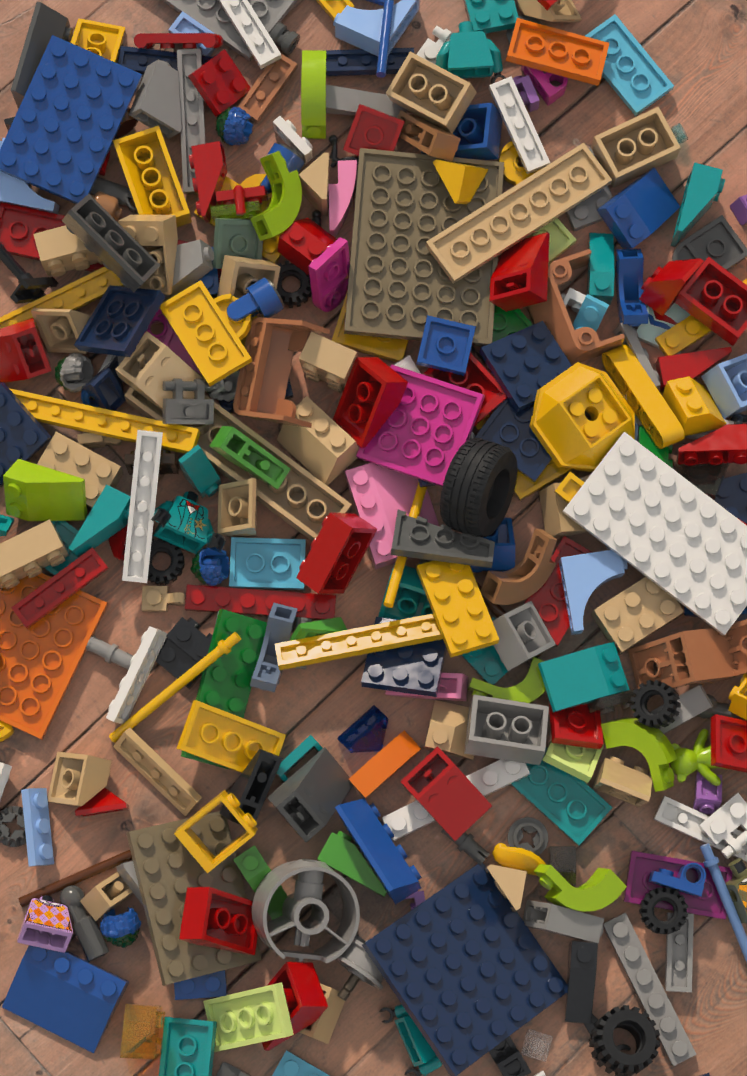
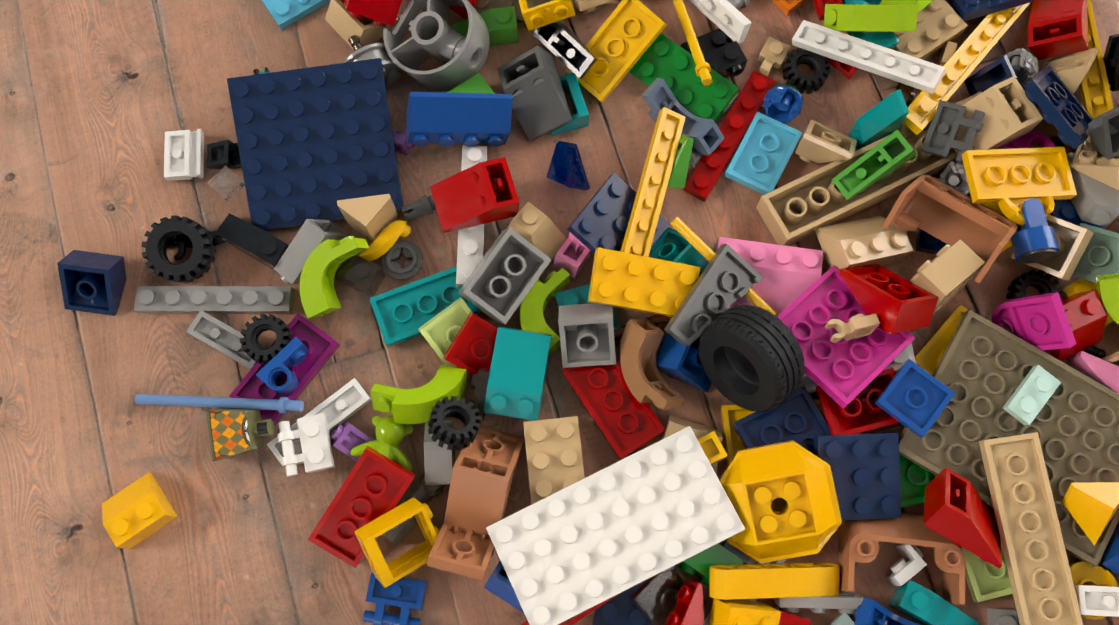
camera: 120 degrees right, 5 degrees down
(108, 516) = (871, 17): none -> lime arch
(186, 524) = (834, 93): teal torso -> none
(336, 553) = (746, 202): red brick -> none
(384, 764) = (531, 167): orange slope -> none
(394, 256) = (1031, 395): none -> light aqua plate
(410, 413) = (856, 327): none -> tan plate
(582, 576) = (613, 419): light blue arch -> none
(590, 313) = (887, 571): medium azure plate -> none
(623, 782) = (399, 358): tan slope -> none

